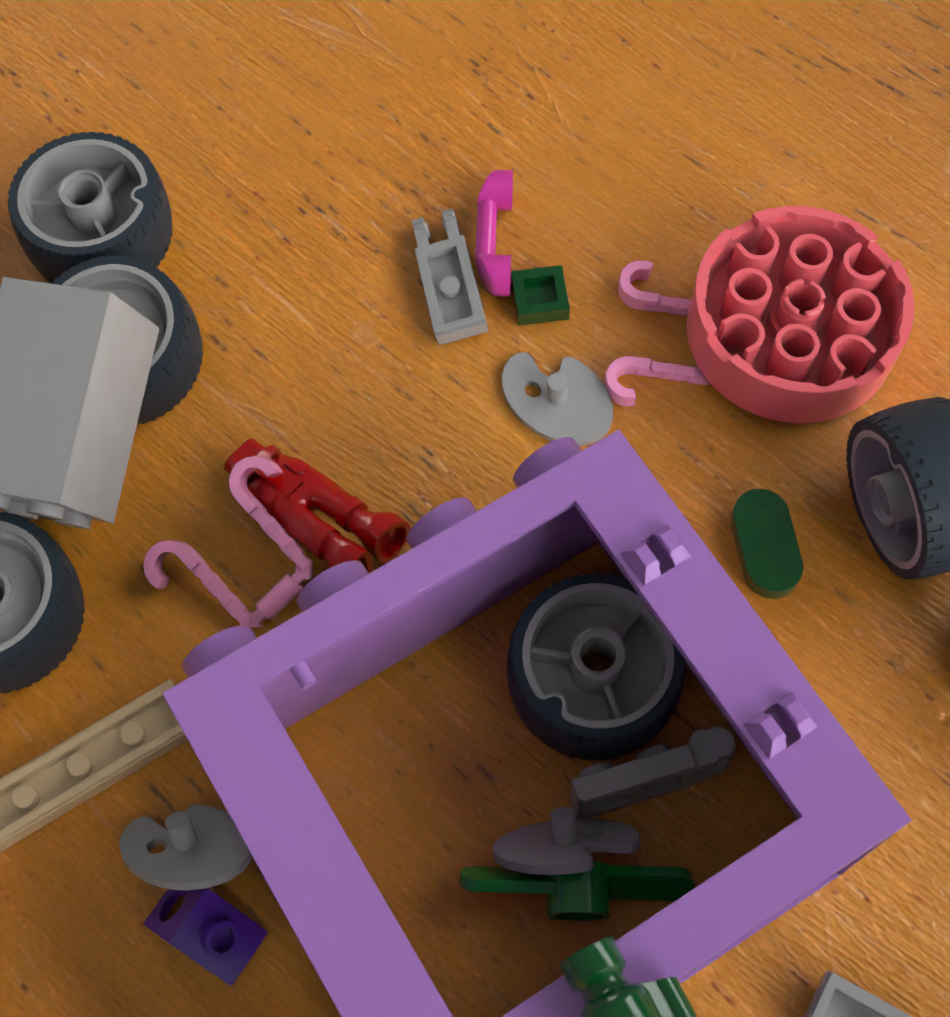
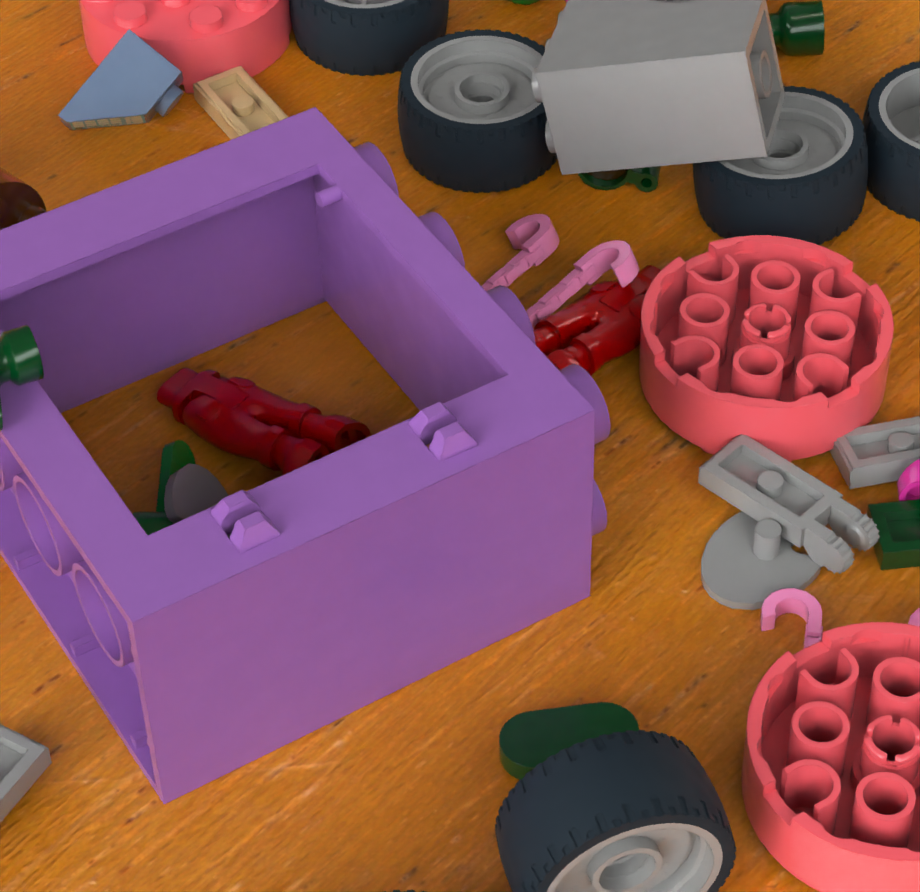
camera: 90 degrees right, 20 degrees down
(351, 369) = (764, 346): none -> coral brick
(404, 836) = (254, 421): none -> red piece
(517, 371) = (778, 490): none -> light grey hinge

